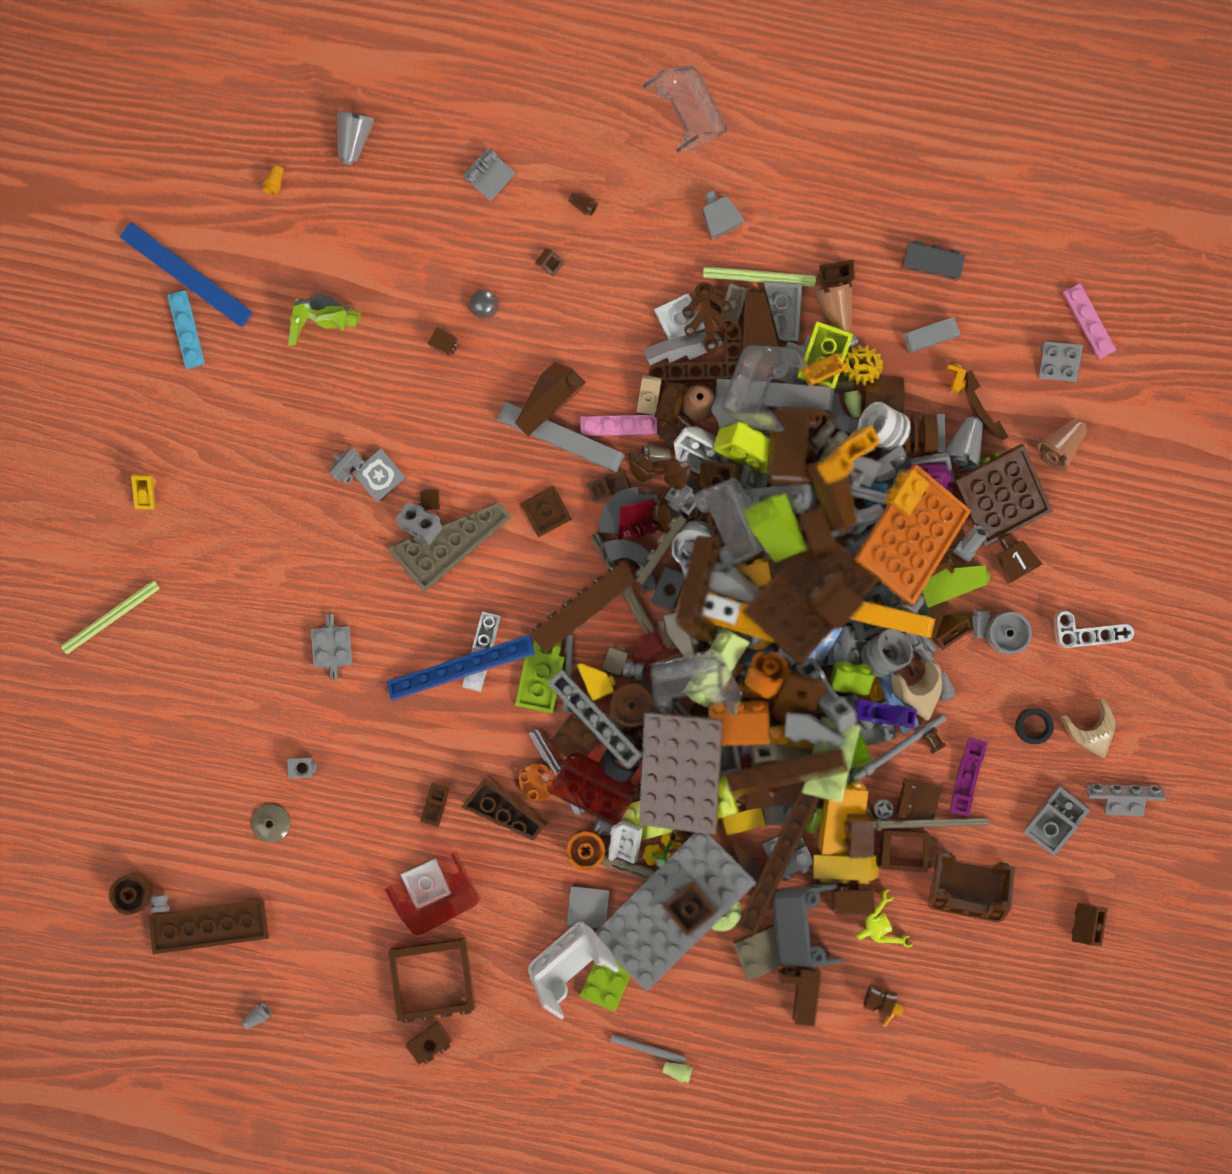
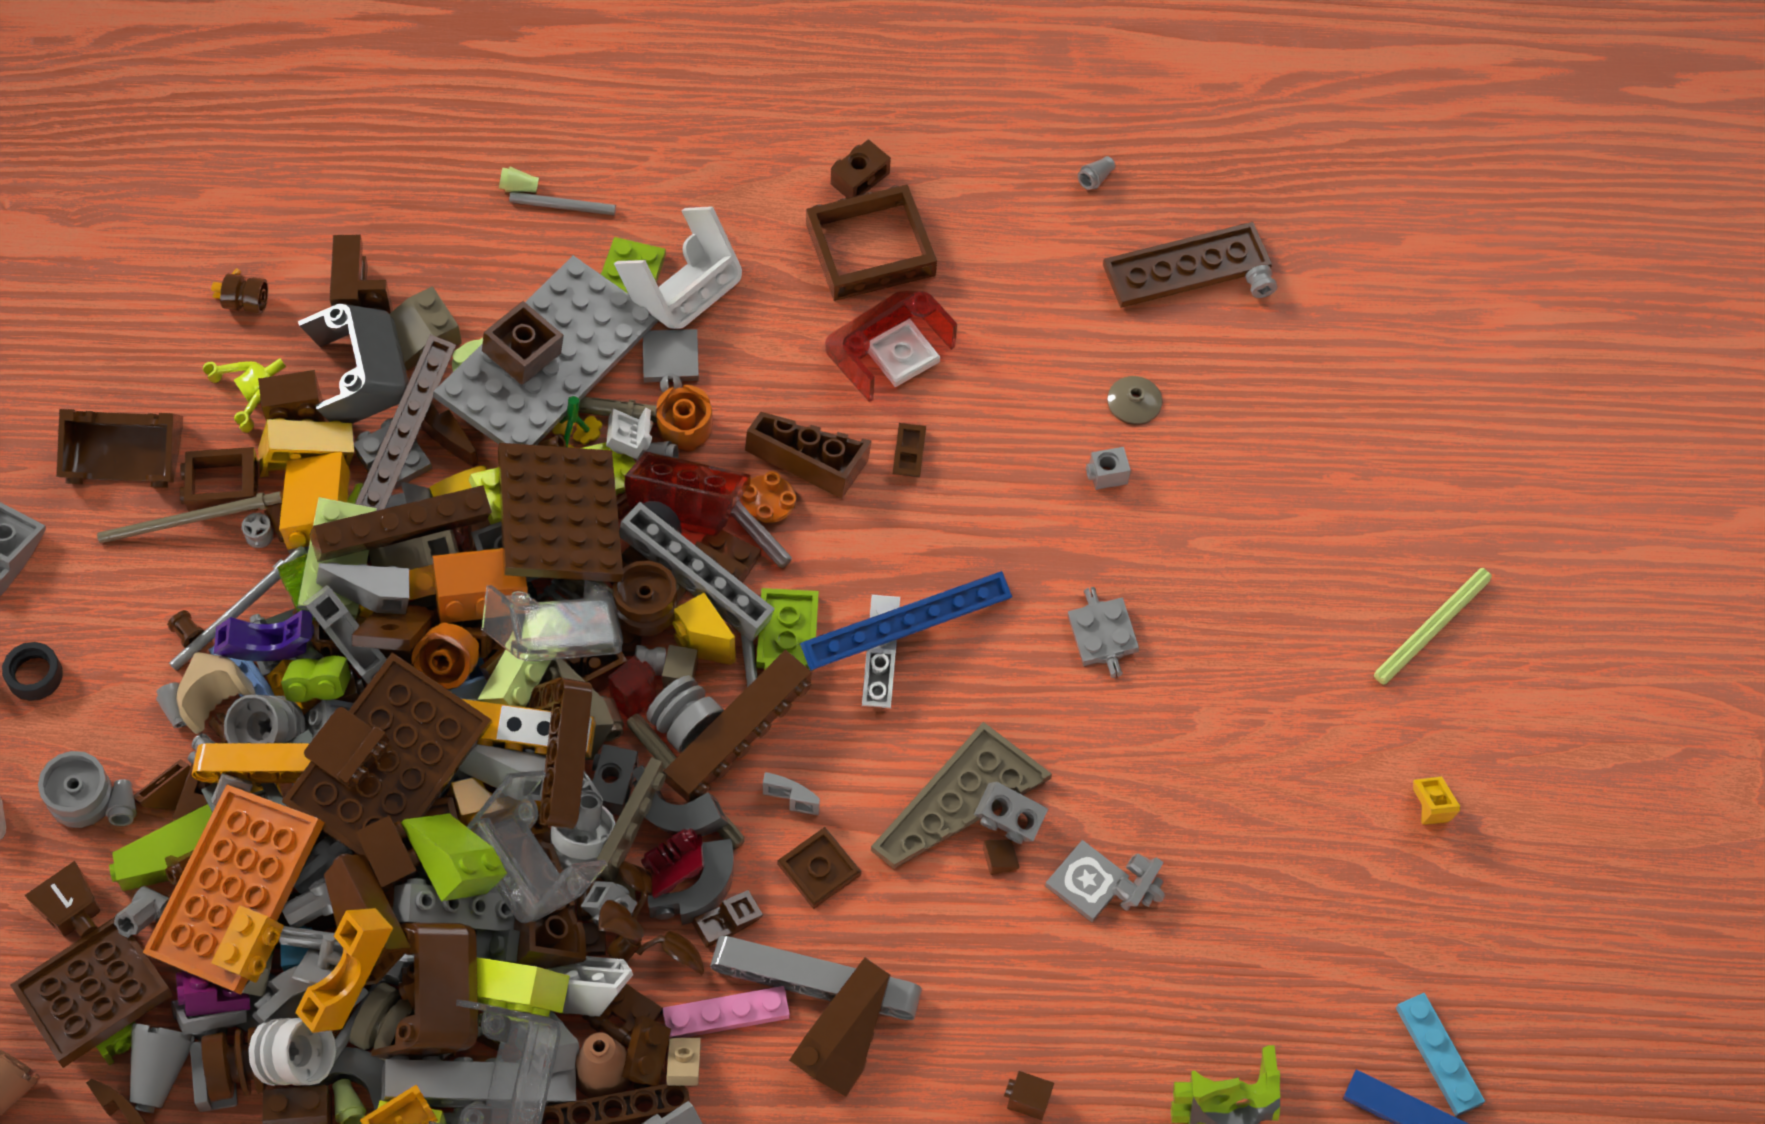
camera: 170 degrees right, 25 degrees down
(121, 900) = (1302, 284): reddish brown brick -> none
(552, 558) = (800, 797): none -> light grey slope
(595, 881) = (664, 385): none -> light grey hinge
(616, 622) = (683, 712): none -> light grey wheel
(656, 453) = (661, 976): dark tan cone -> none
(859, 835) = (288, 473): reddish brown brick -> none
(917, 800) = (207, 547): reddish brown bracket -> none
(967, 776) = (134, 587): magenta slope -> none

